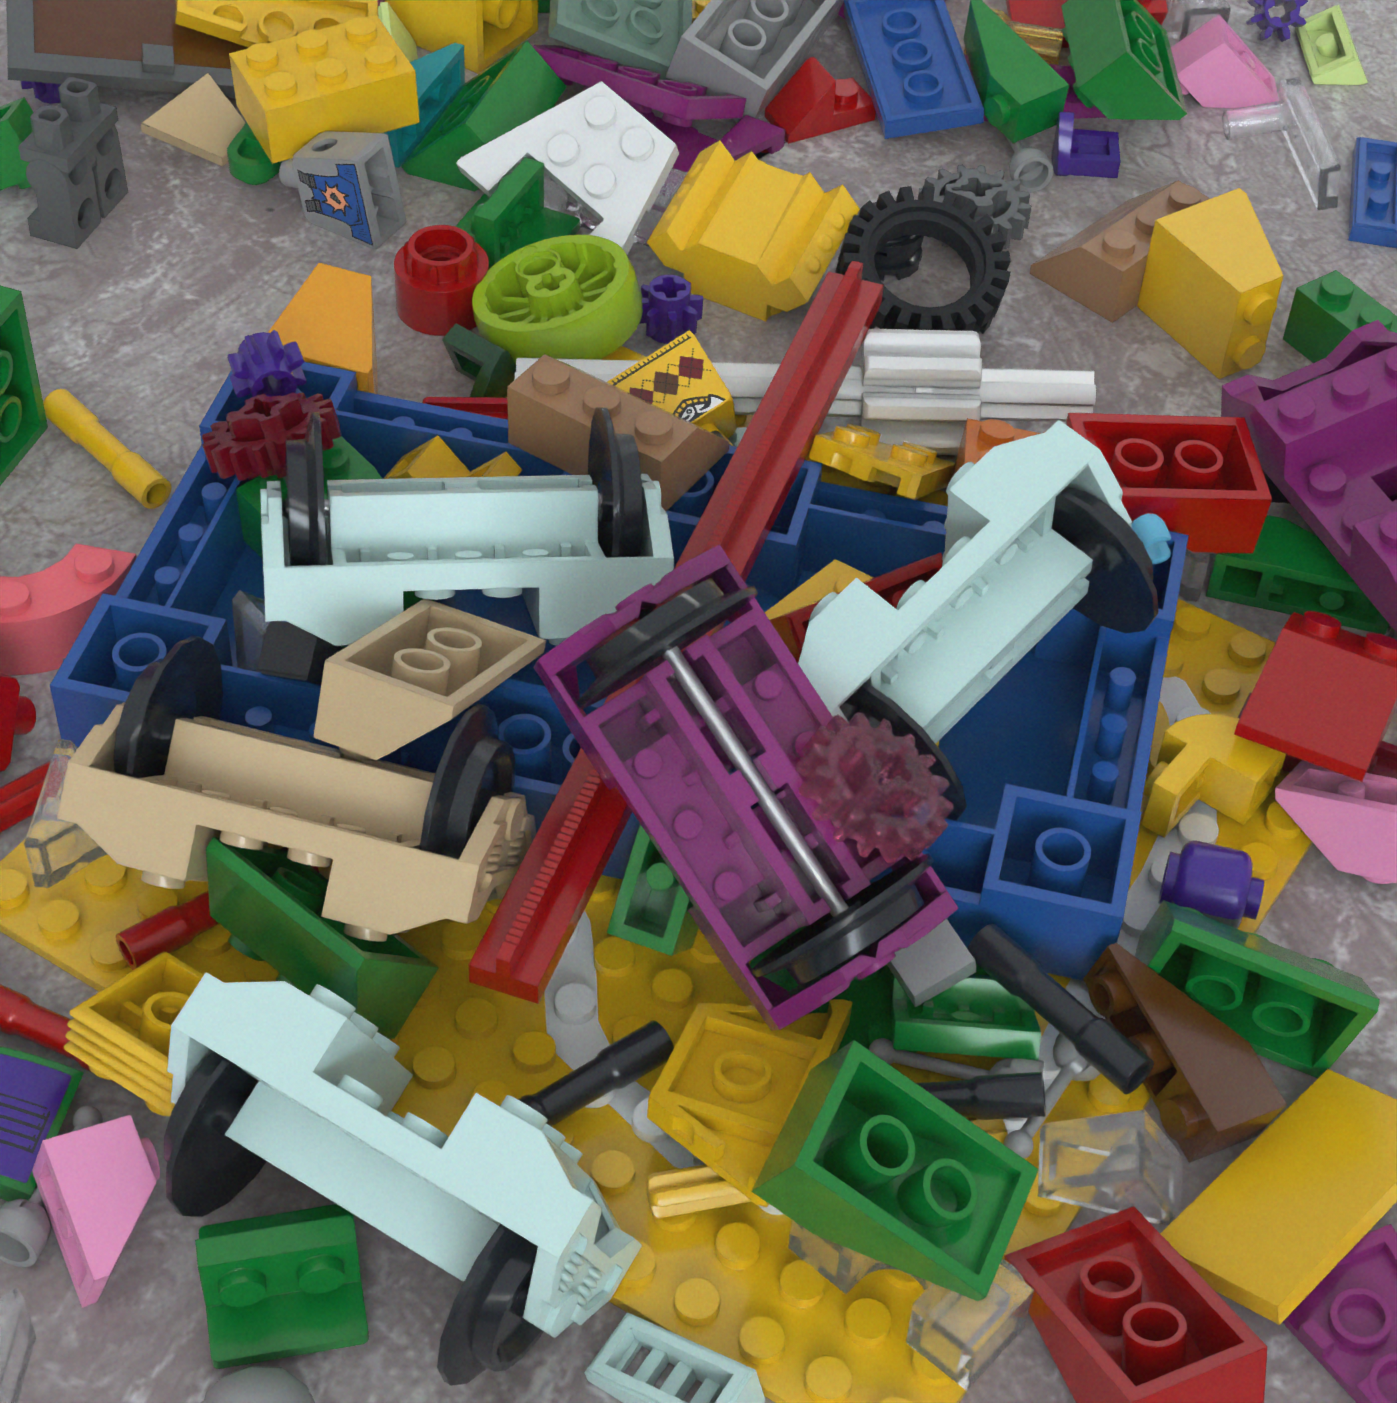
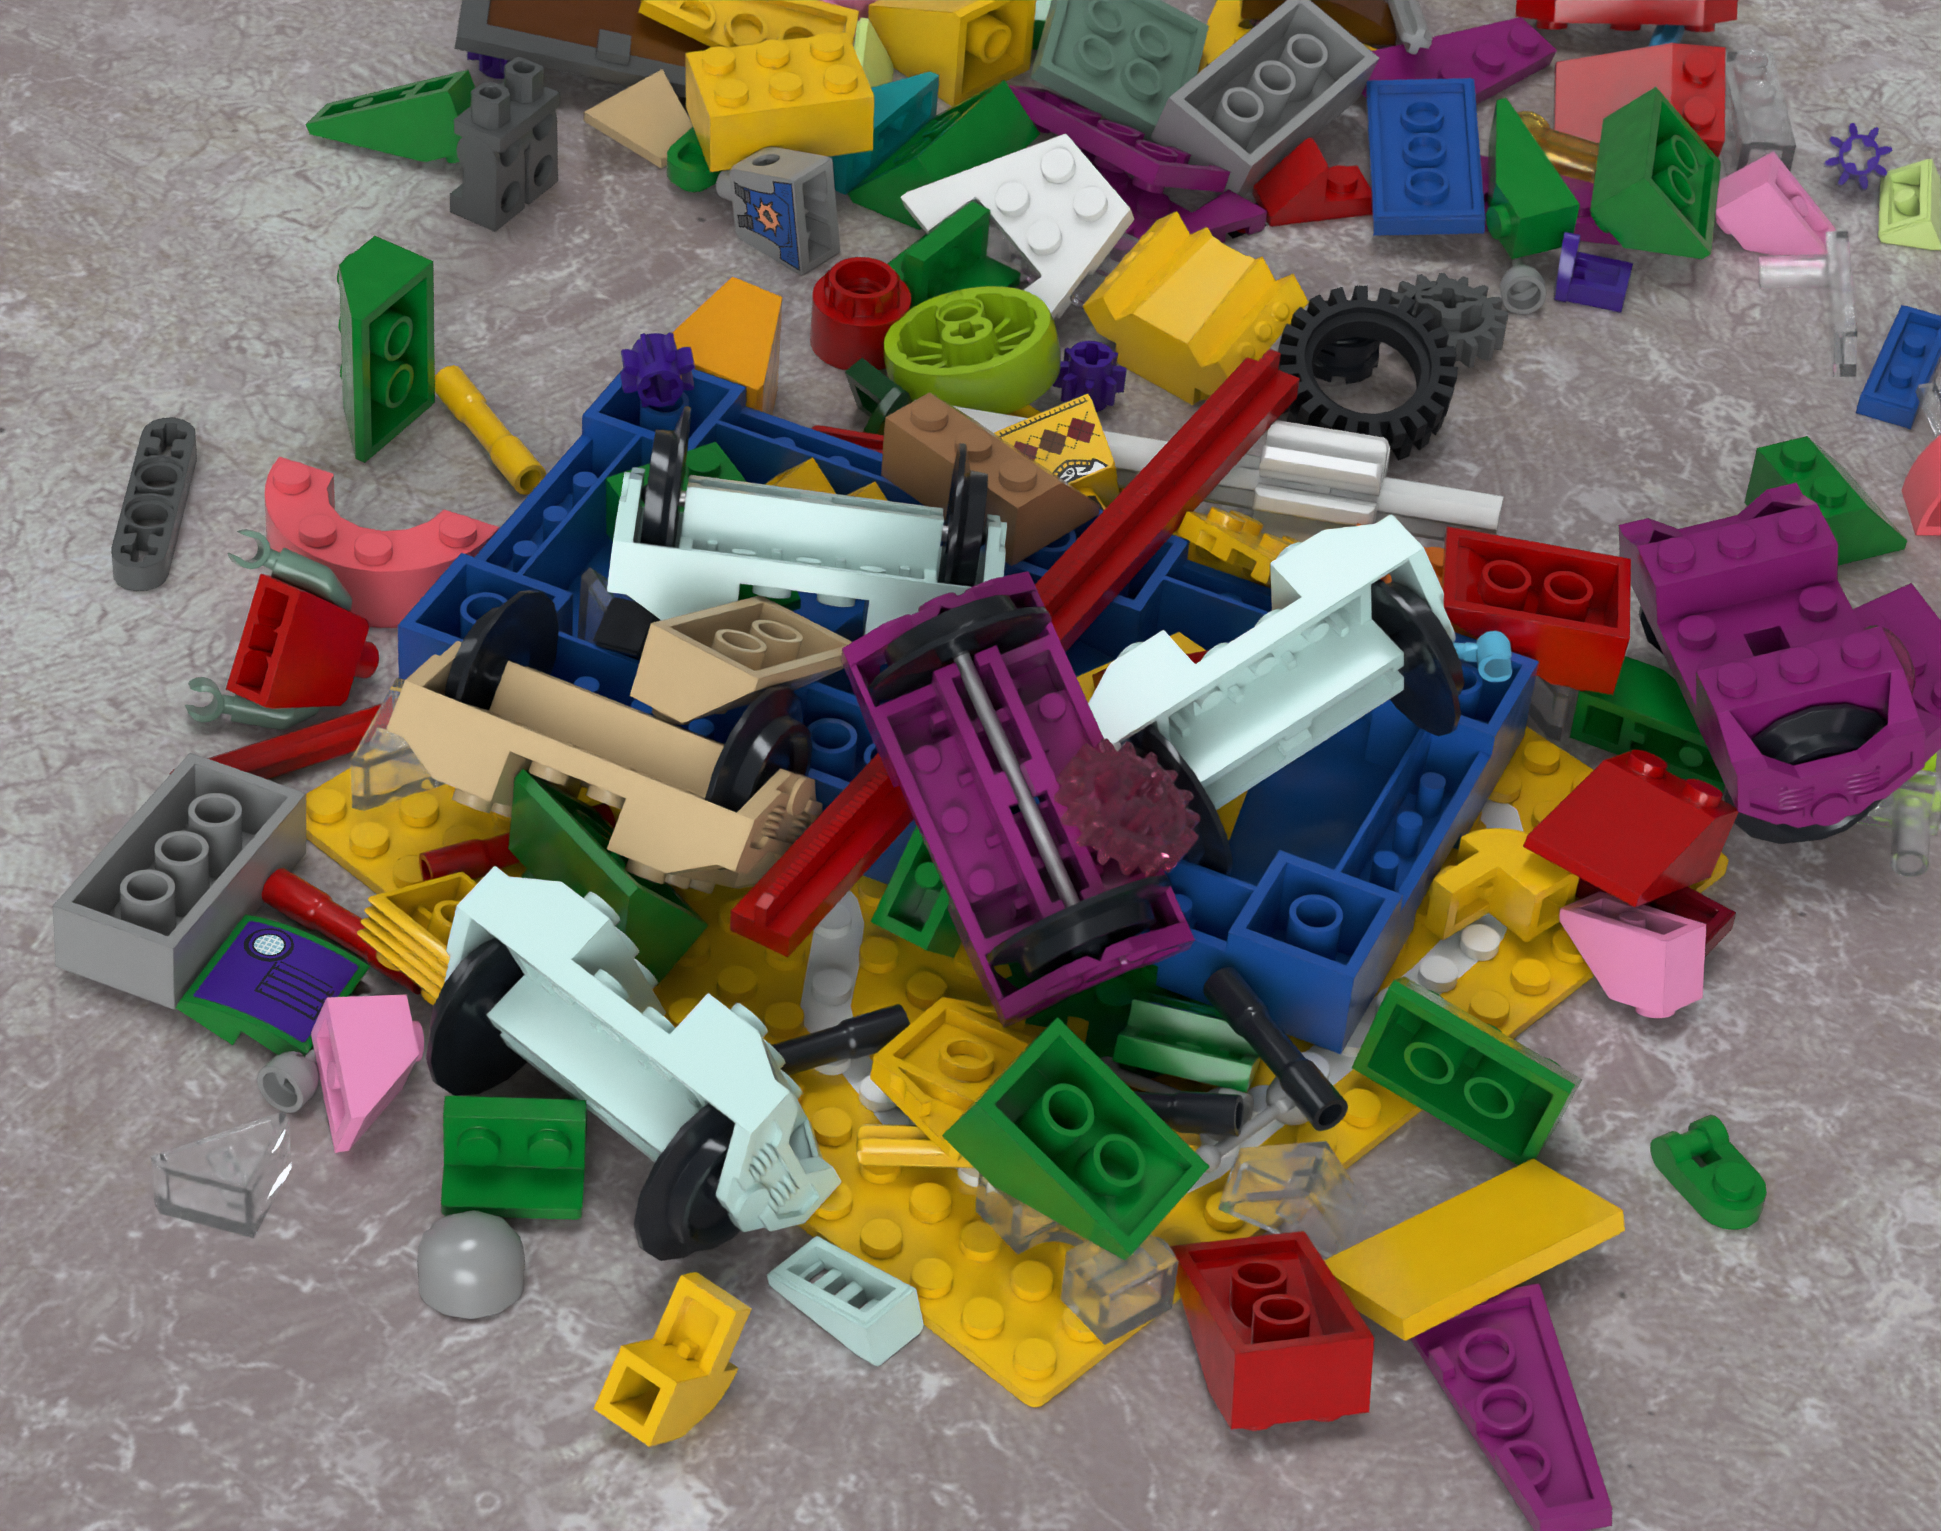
camera: 10 degrees right, 5 degrees down
(255, 436) = (628, 429): dark red gear -> none
(932, 964) = (1165, 991): light grey tile -> none
(1108, 258) = (1607, 389): medium nougat slope -> none
(1203, 1072) = (1396, 1125): reddish brown slope -> none
(1212, 882) = (1466, 975): dark purple head -> none
(1213, 282) = (1670, 428): yellow slope -> none

